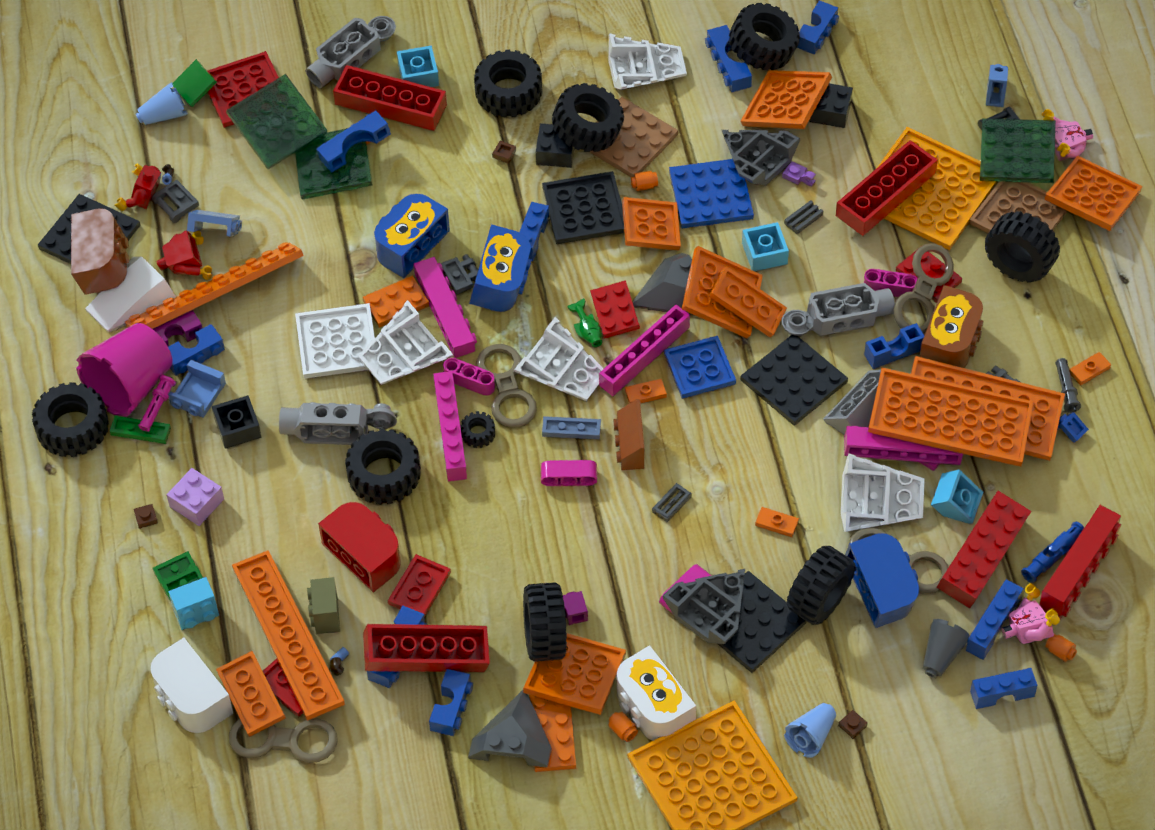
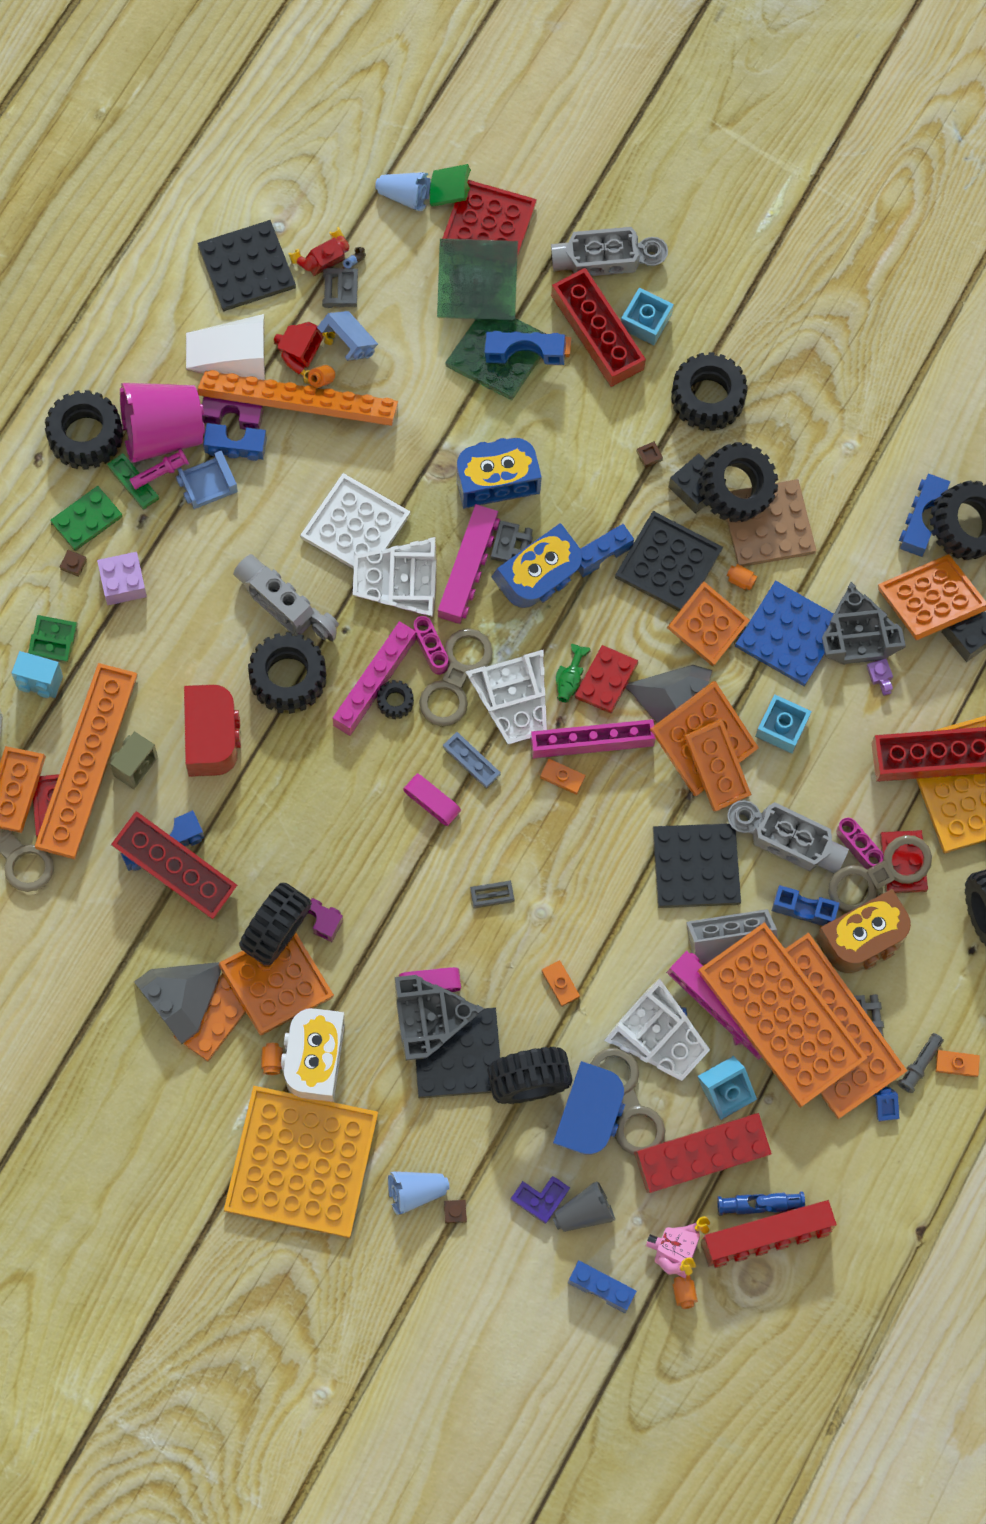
camera: 35 degrees right, 15 degrees up
(97, 251) = (228, 291): brick -> none
(126, 480) = (86, 518): none -> green plate
(222, 259) = (321, 376): none -> orange brick
(236, 422) = (209, 536): black brick -> none
(335, 661) = (105, 814): dark brown arm -> none
(390, 299) = (436, 521): orange plate -> none
(419, 585) = (225, 802): red plate -> none
(447, 718) = (146, 936): blue arch -> none
(630, 437) = (508, 809): dark orange slope -> none
(643, 63) = (846, 461): white wedge -> none
(699, 367) = (627, 790): blue plate -> none
(802, 214) = (865, 727): dark grey tile -> none
(907, 670) = (541, 1204): none -> dark purple plate
(989, 625) = (652, 1220): blue arch -> none

